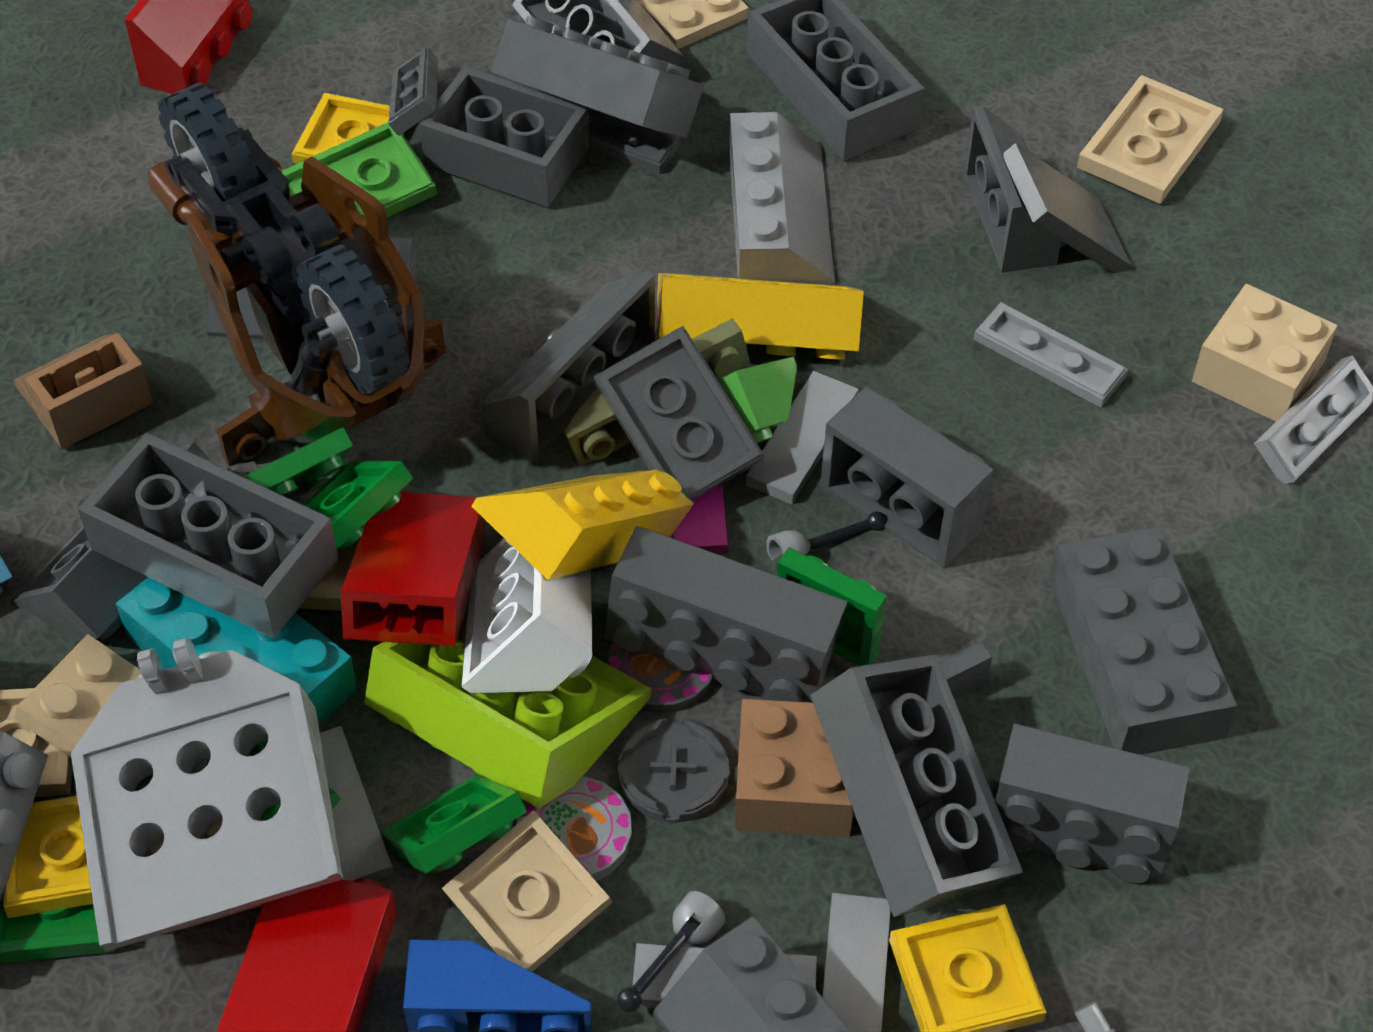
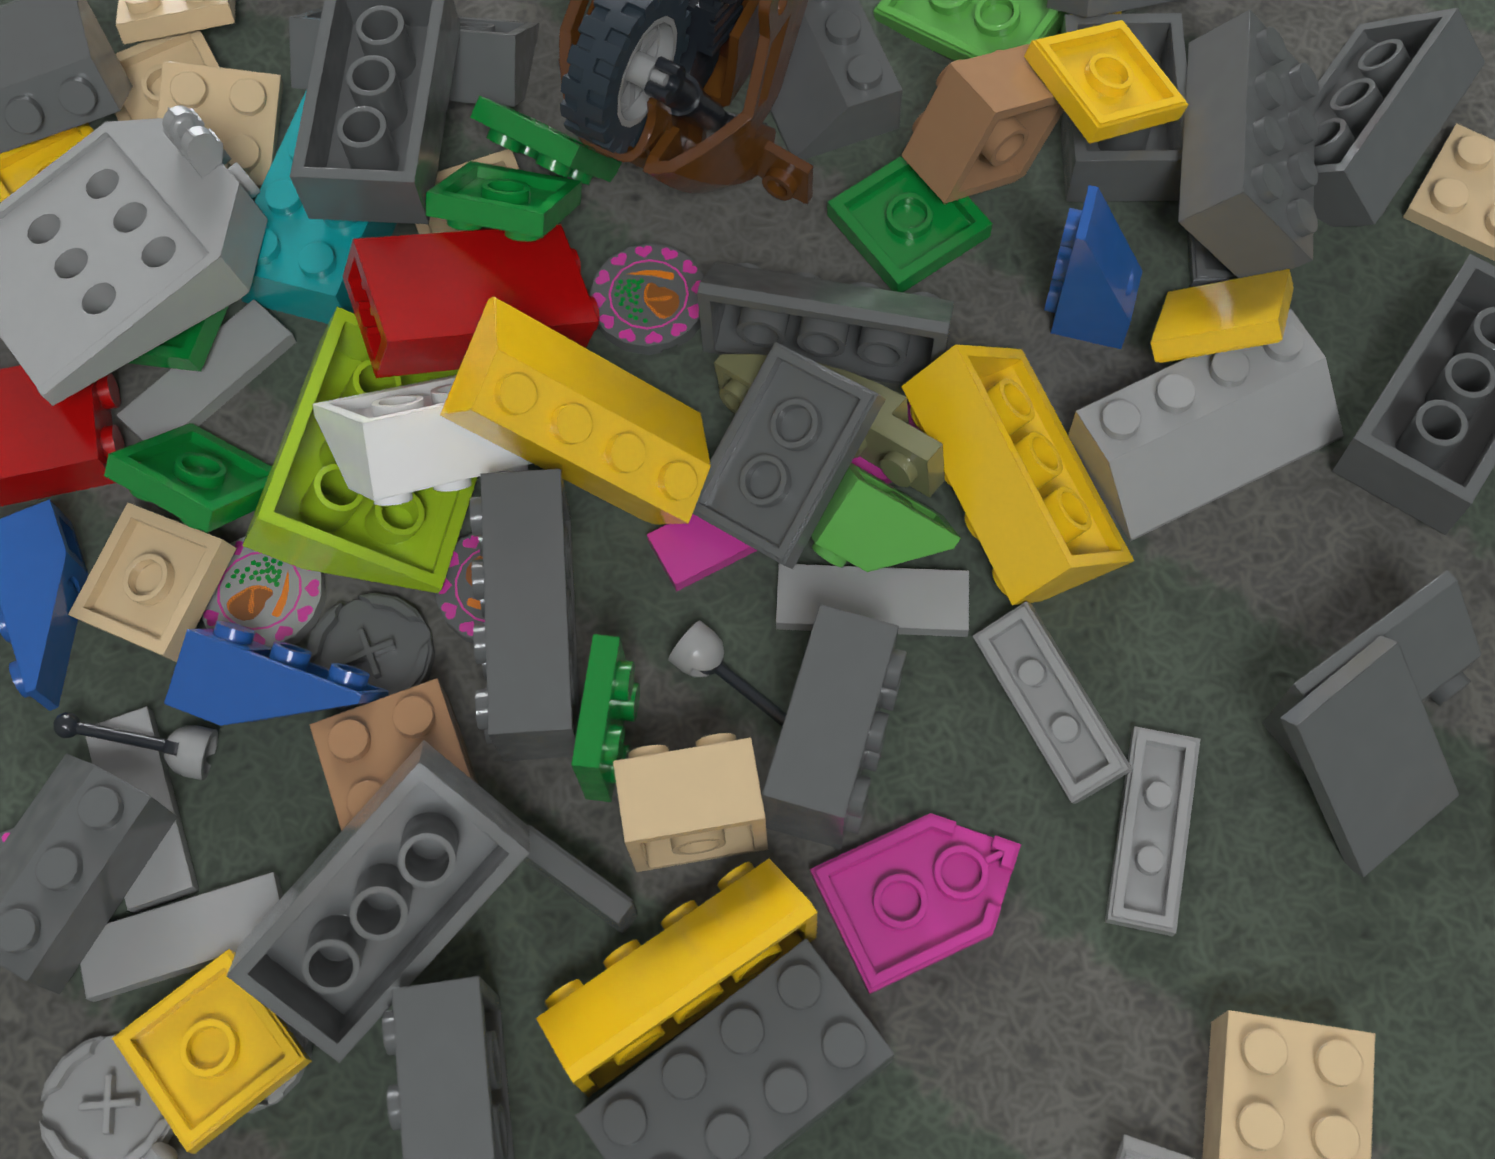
camera: 70 degrees right, 15 degrees up
(467, 466) = (648, 298): none -> dark grey tile
(479, 197) = (982, 125): none -> medium nougat brick
(503, 116) = (1105, 81): none -> yellow tile
(507, 294) = (905, 225): none -> green plate
(644, 201) = (1093, 276): none -> blue slope
(669, 846) = (239, 681): none -> blue slope
(712, 149) = (1223, 316): none -> yellow tile
(922, 576) = (690, 802): none -> tan brick
(936, 365) = (1052, 703): none -> light grey tile
(1037, 497) = (915, 896): none -> dark pink tile
(1045, 632) = (677, 975): none -> yellow slope

